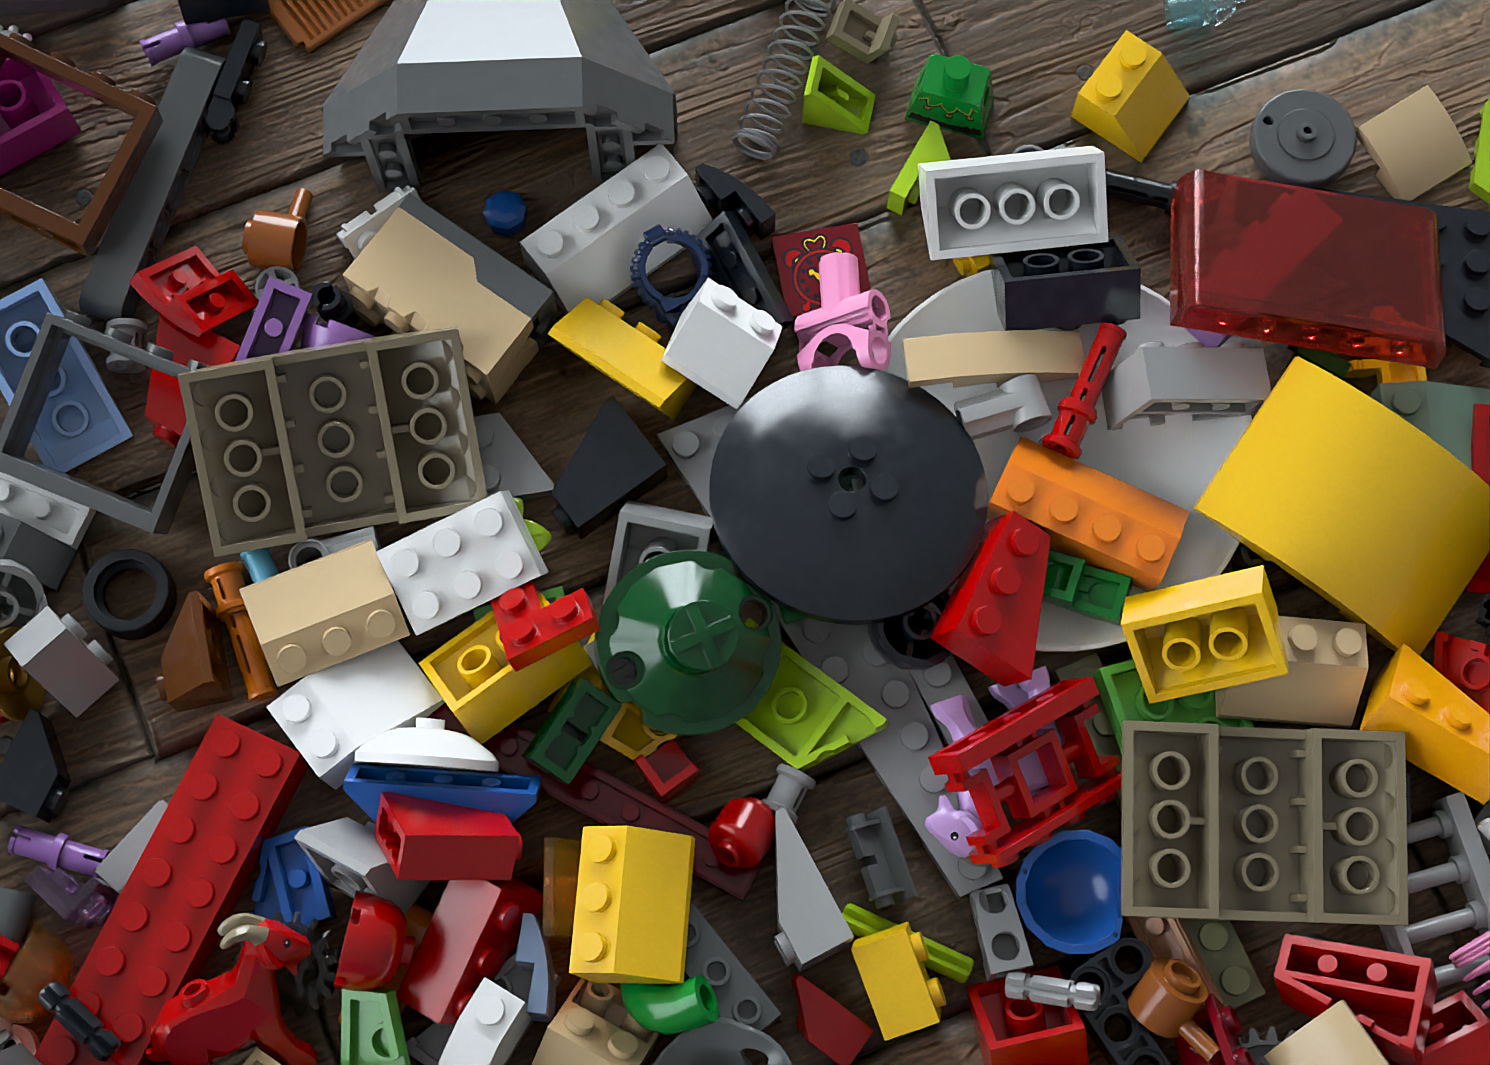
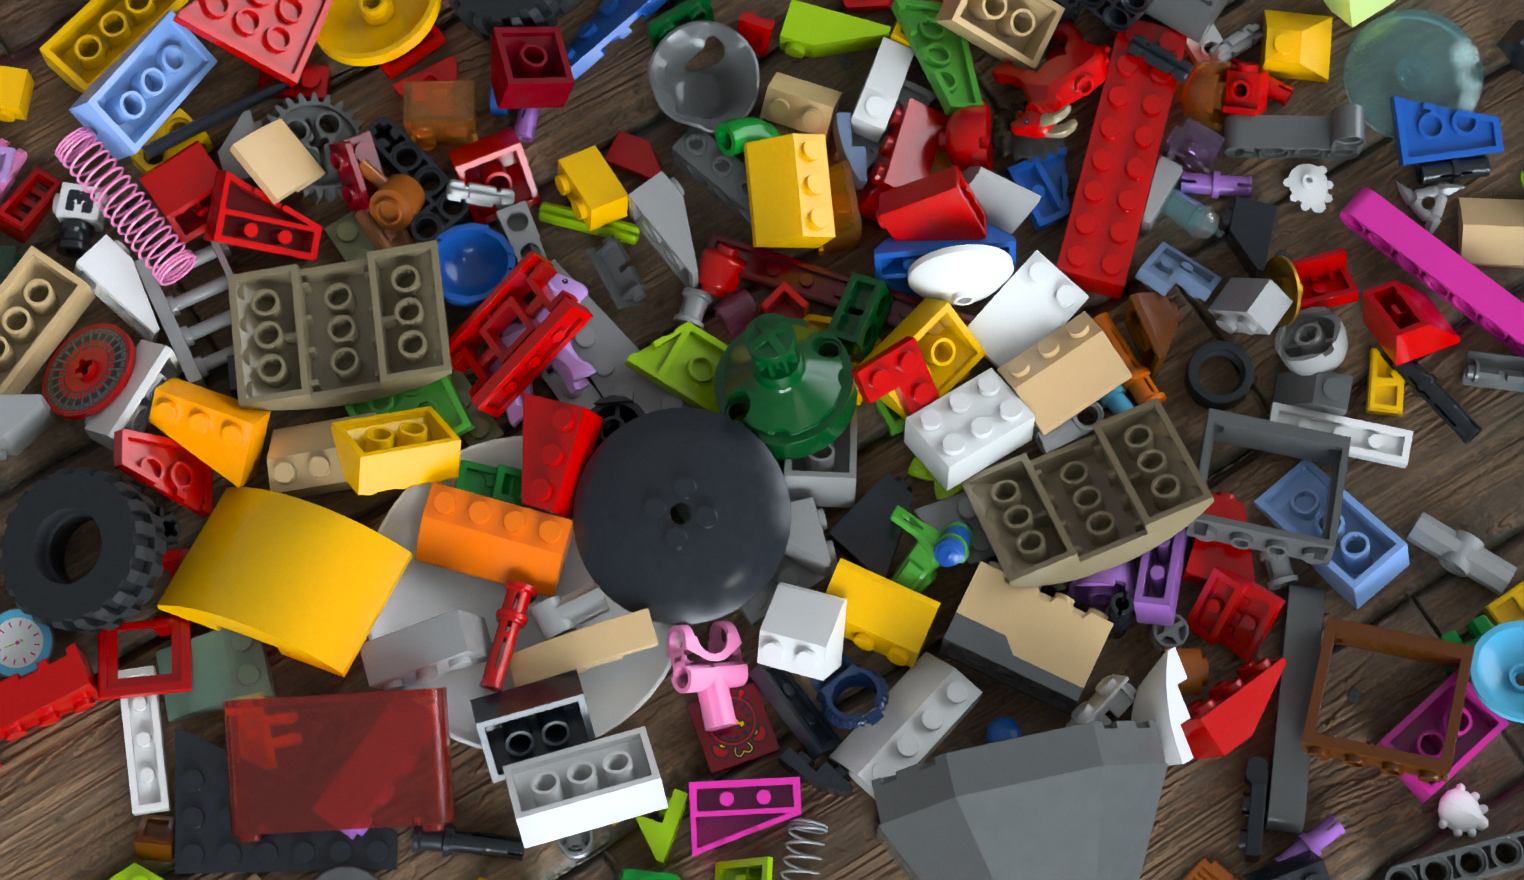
camera: 170 degrees right, 0 degrees up
(100, 810) = (1191, 215): none -> clear light blue piece
(148, 739) = (1171, 266): none -> sand blue plate
(226, 180) = (1231, 709): none -> red slope
(316, 186) = (1161, 701): none -> white slope
(545, 414) = (930, 550): none -> bright green piece
(693, 460) = (807, 539): none -> light grey slope
(721, 767) = (736, 312): none -> clear pink panel
(829, 171) = (737, 808): none -> dark pink wedge

